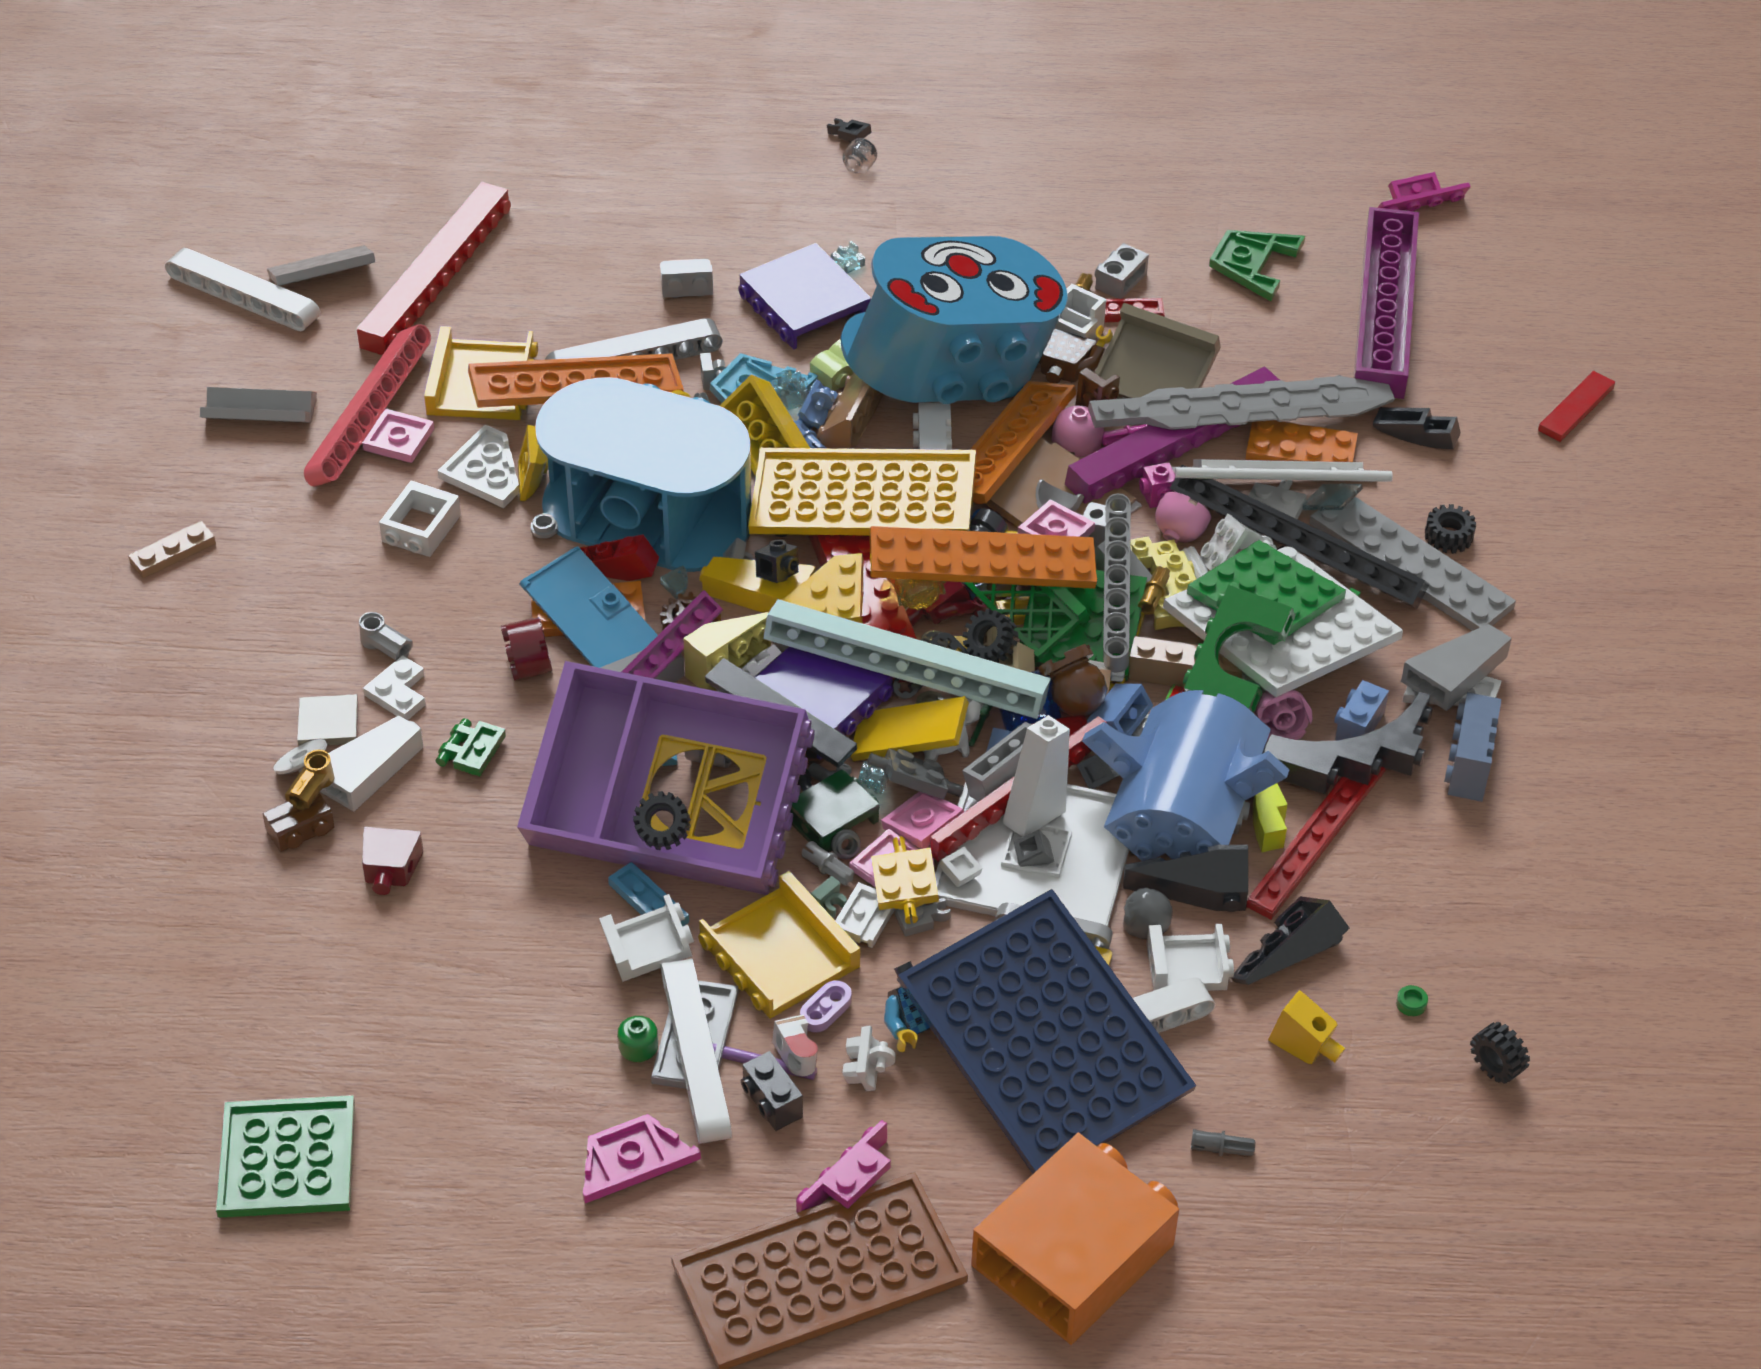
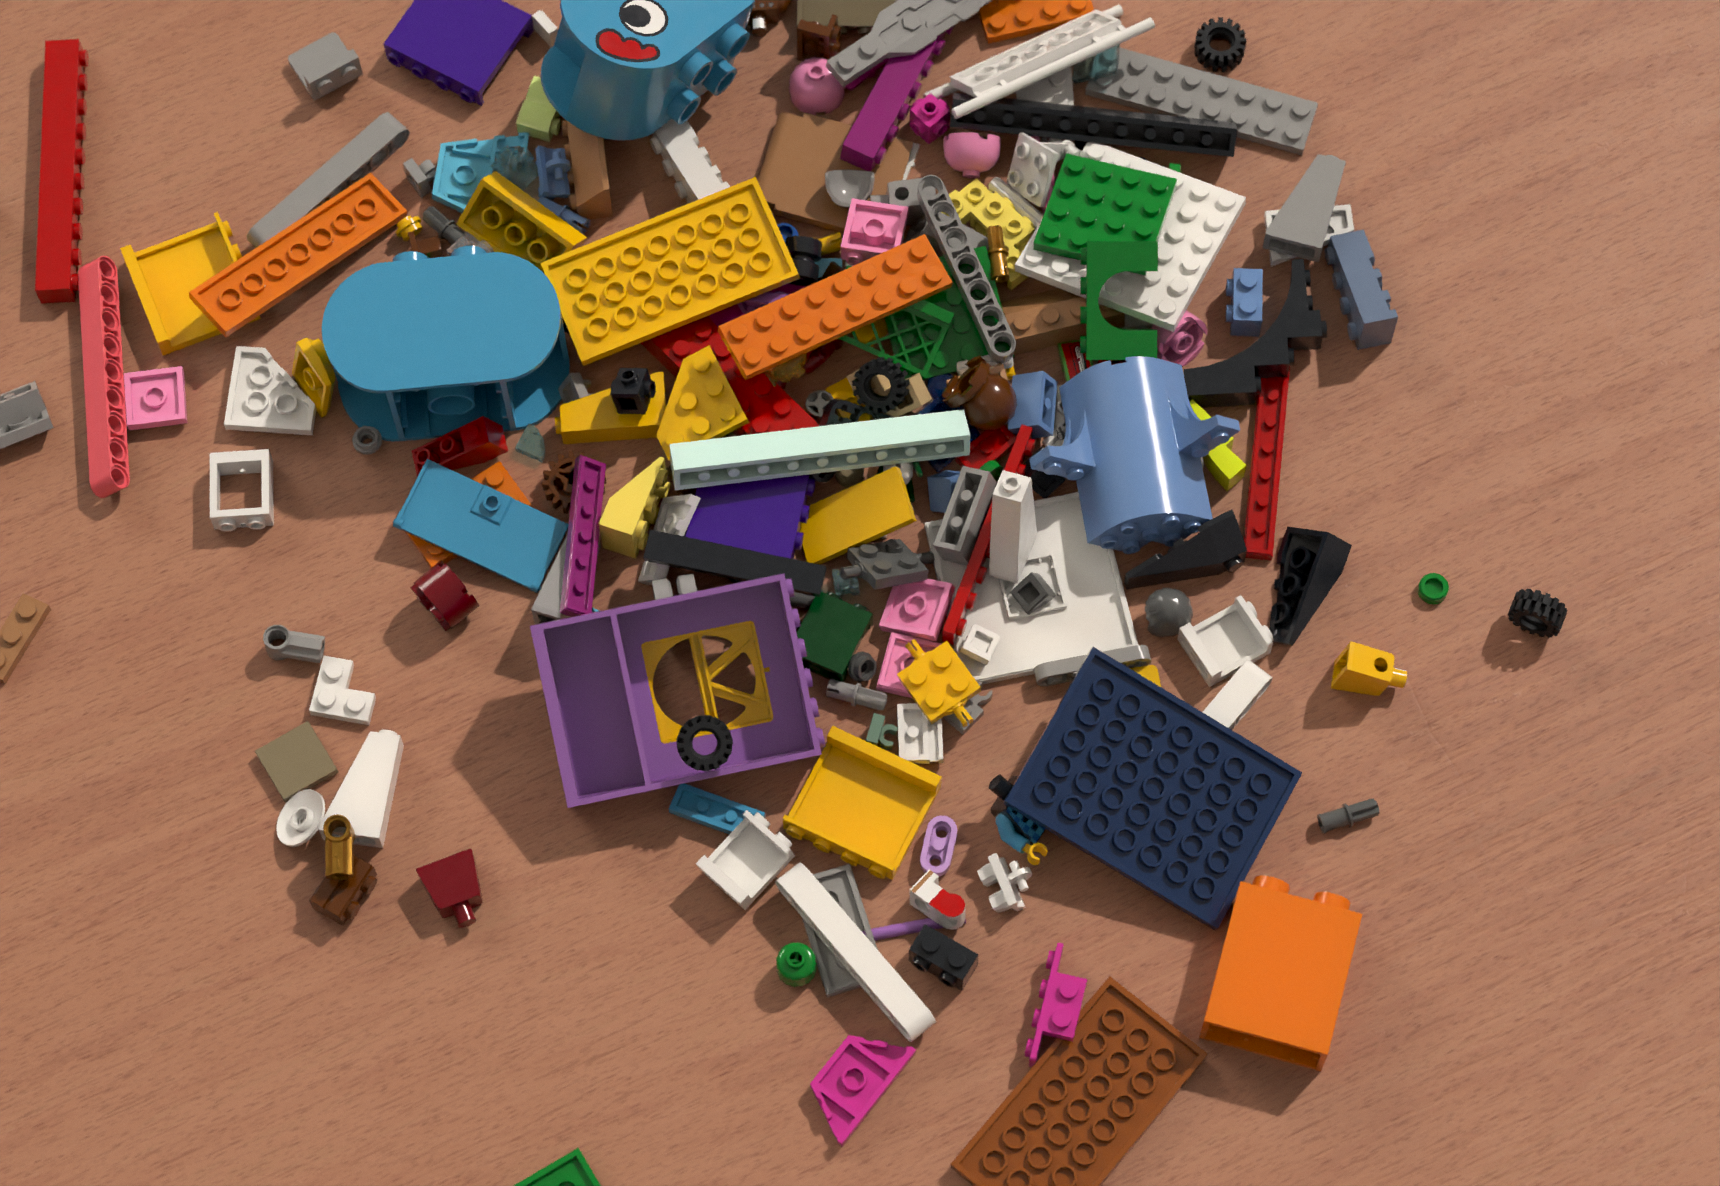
camera: 25 degrees left, 20 degrees up
(477, 750) = (462, 726): plate -> none
(1016, 433) = (765, 121): orange plate -> none

